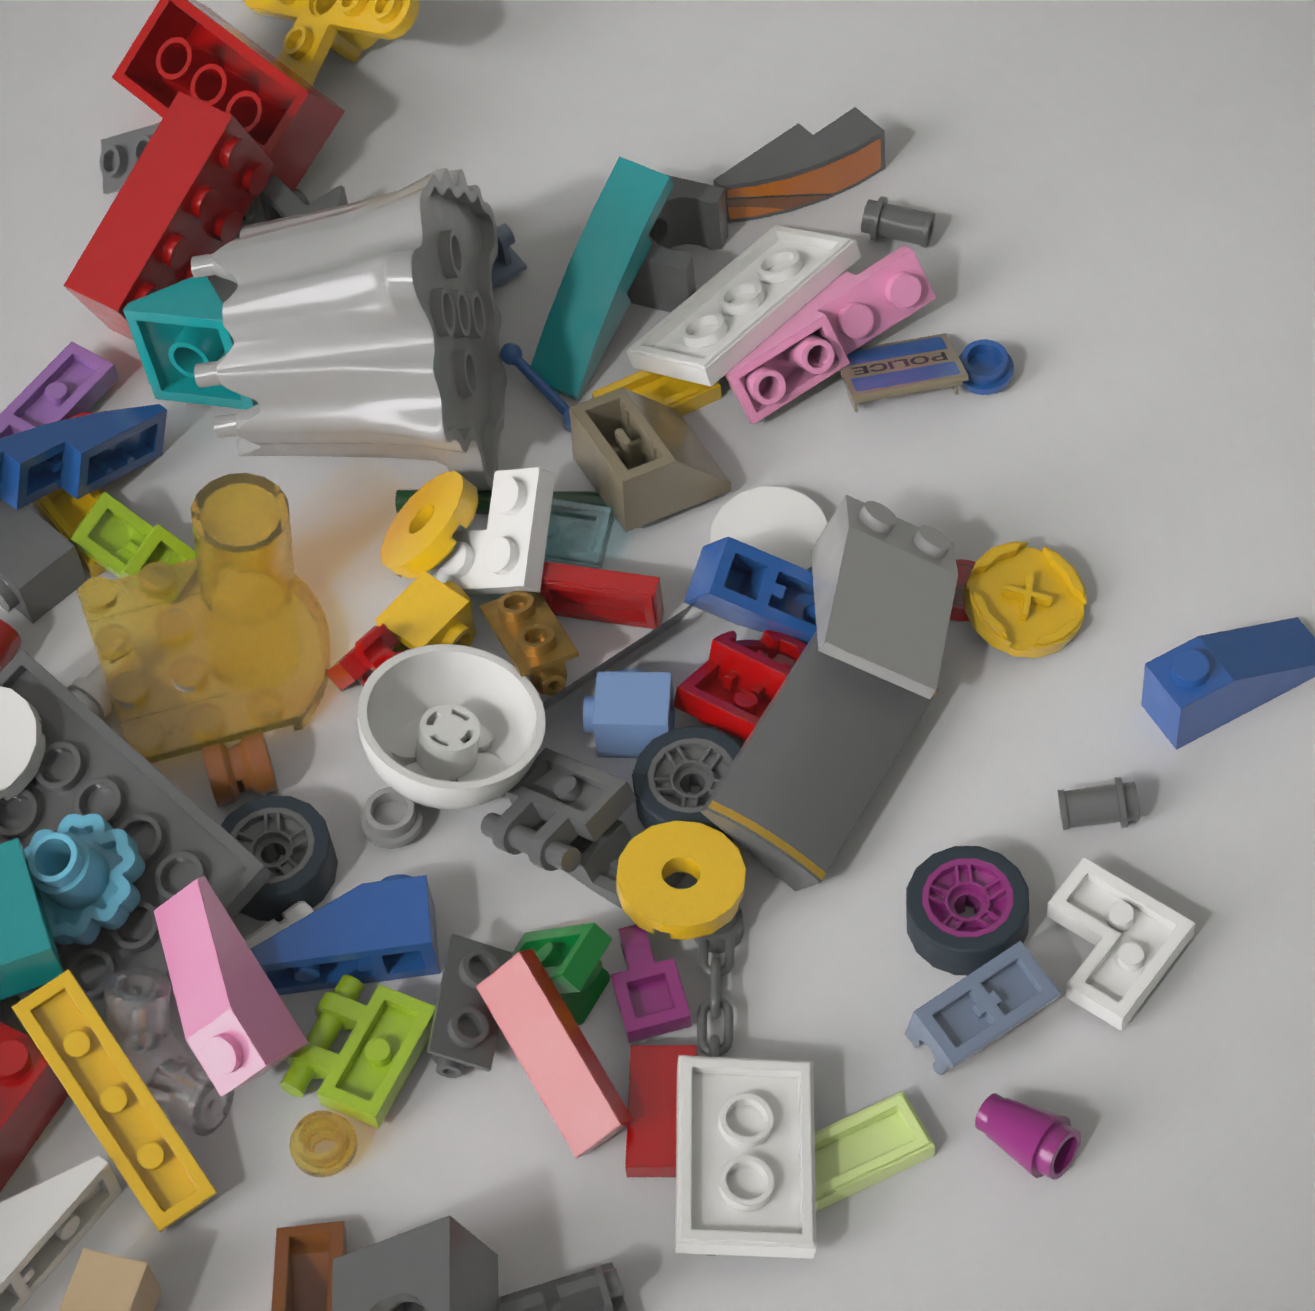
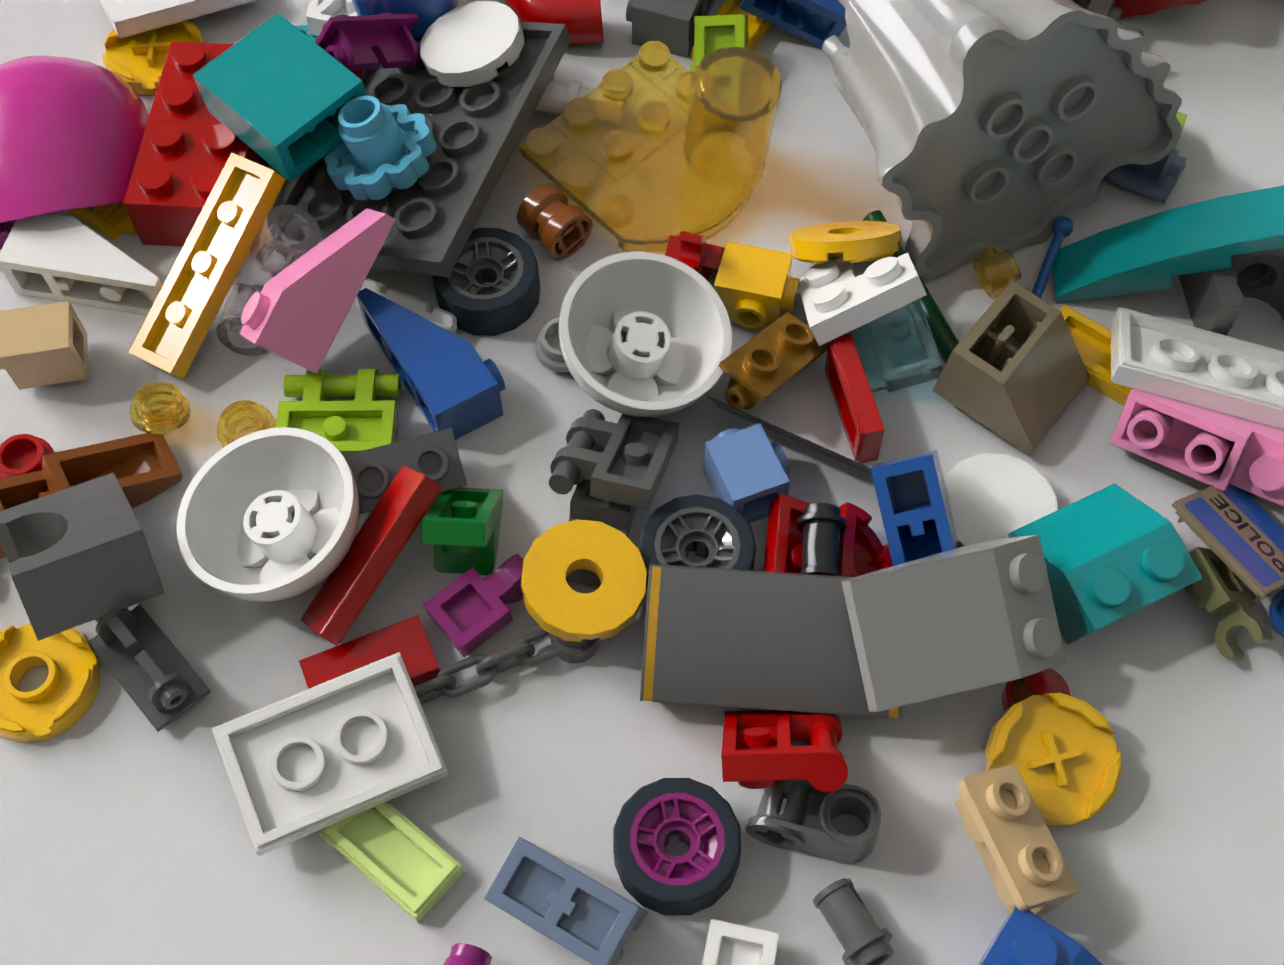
camera: 60 degrees right, 5 degrees up
(251, 1219) = (159, 408): none -> clear yellow plate
(449, 1092) = (269, 515): none -> white piece
(528, 426) = (995, 270): none -> clear yellow plate
(744, 673) = (821, 538): none -> black pin
(871, 456) = (1108, 559): none -> teal slope
(926, 783) = (760, 750): none -> red plate
(932, 413) = (1225, 595): none -> olive plate
(983, 799) = (808, 820): none -> dark grey piece
(1087, 654) = (1014, 841): none -> tan bracket

